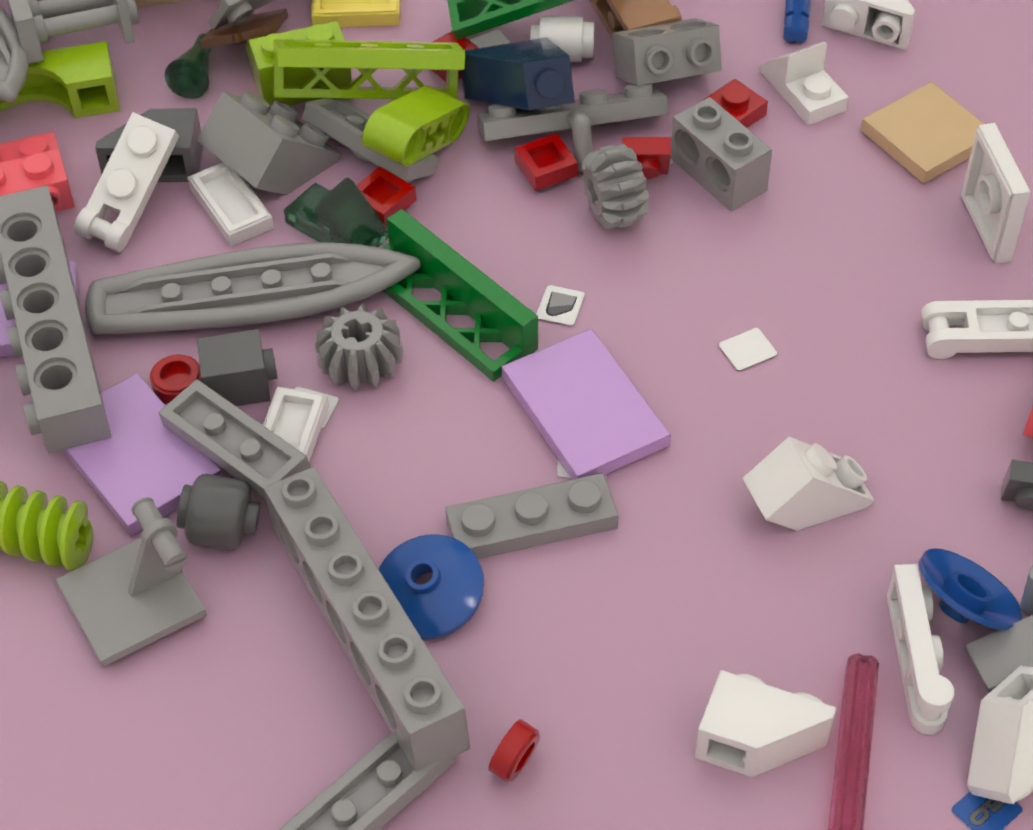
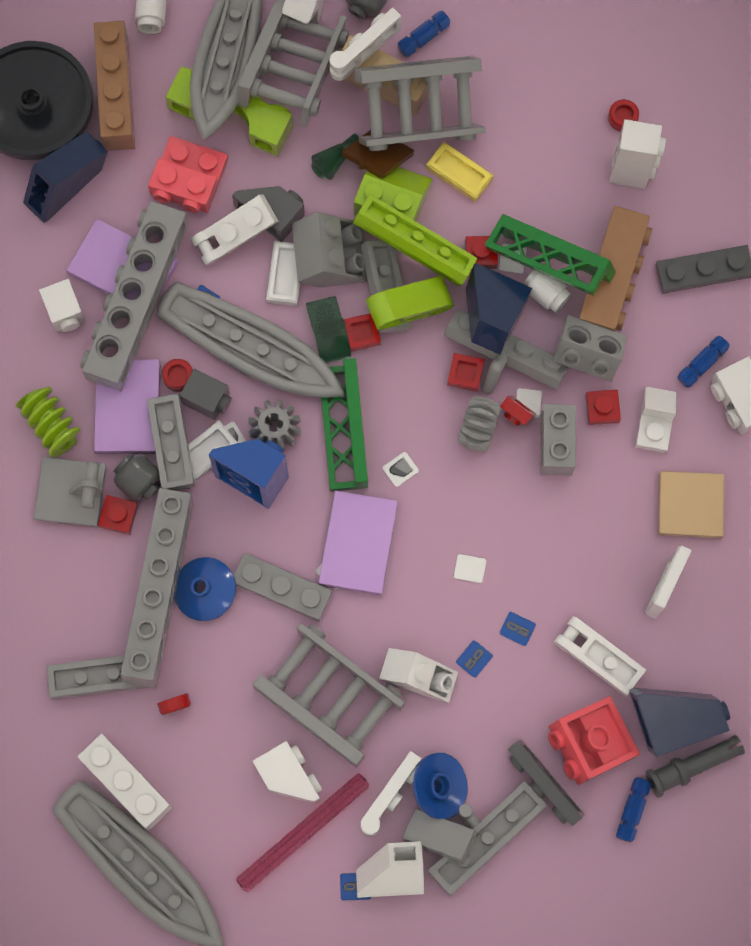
camera: 35 degrees right, 25 degrees up
(225, 581) = (118, 514): none -> red plate
(372, 382) = (252, 469): none -> blue slope
(719, 637) = (299, 706): none -> light grey fence
(853, 436) = (474, 658): none -> blue sticker
(870, 371) = (517, 628): none -> blue sticker

